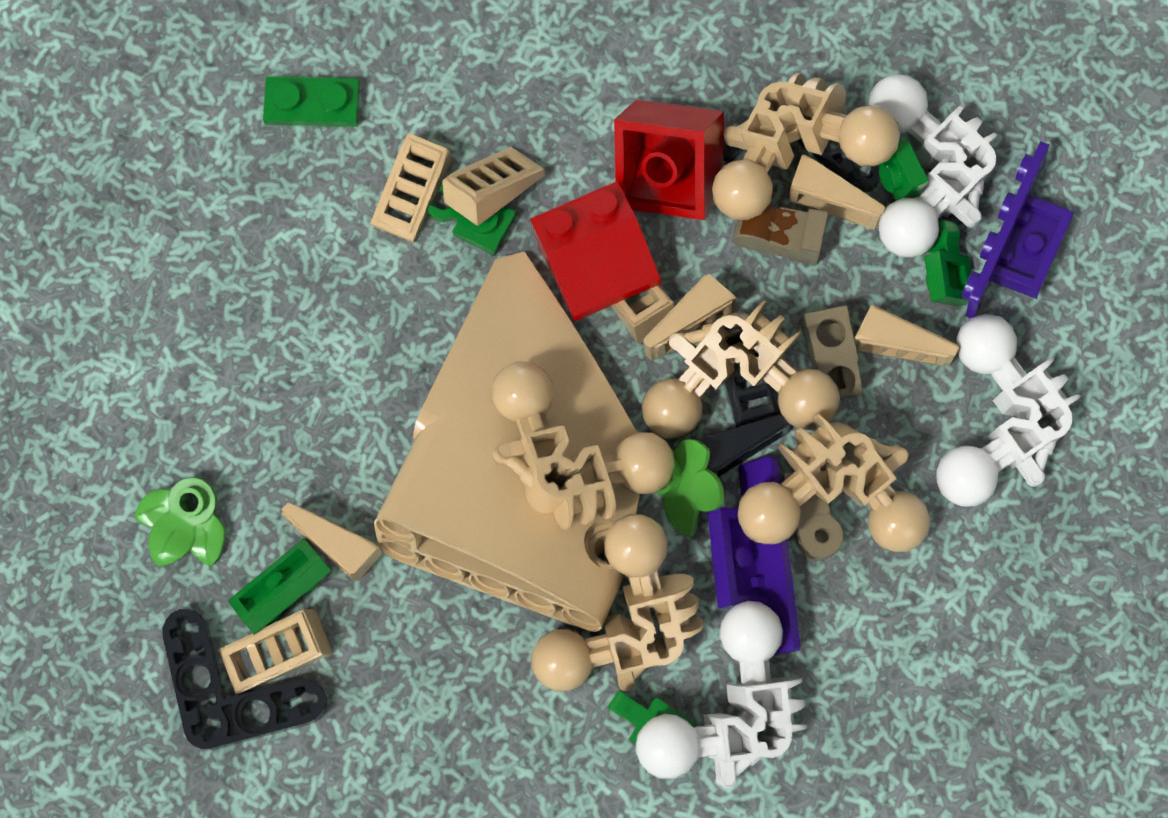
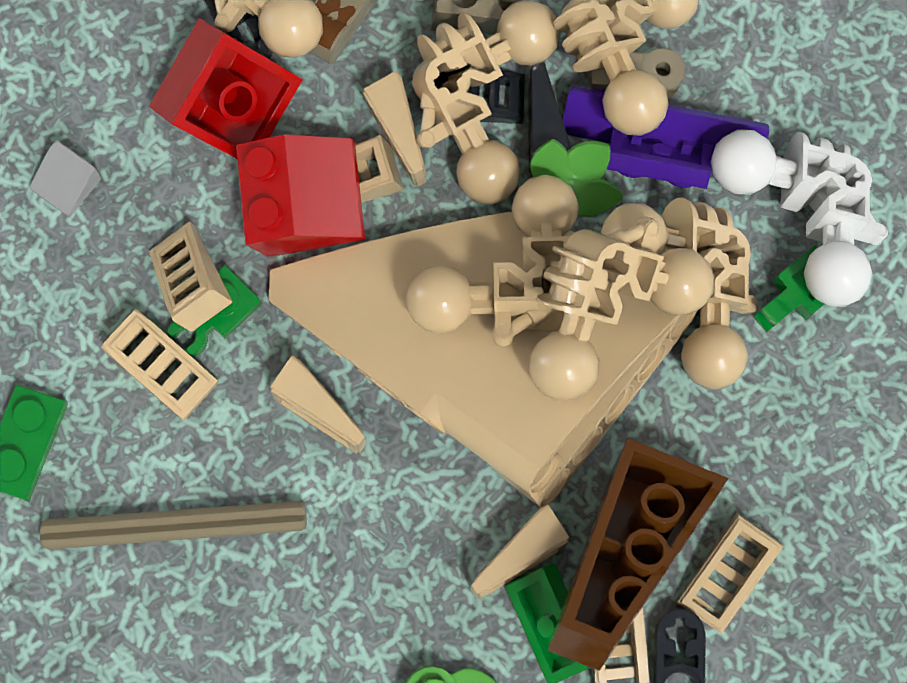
camera: 80 degrees left, 0 degrees up
(278, 247) = (173, 525): none -> dark tan axle
(362, 628) = (636, 536): none -> reddish brown wedge
(411, 744) = (770, 550): none -> tan slope
(417, 318) = (308, 399): none -> tan slope
(551, 55) = (64, 179): none -> light grey slope
(574, 506) = (587, 288): none -> tan piece

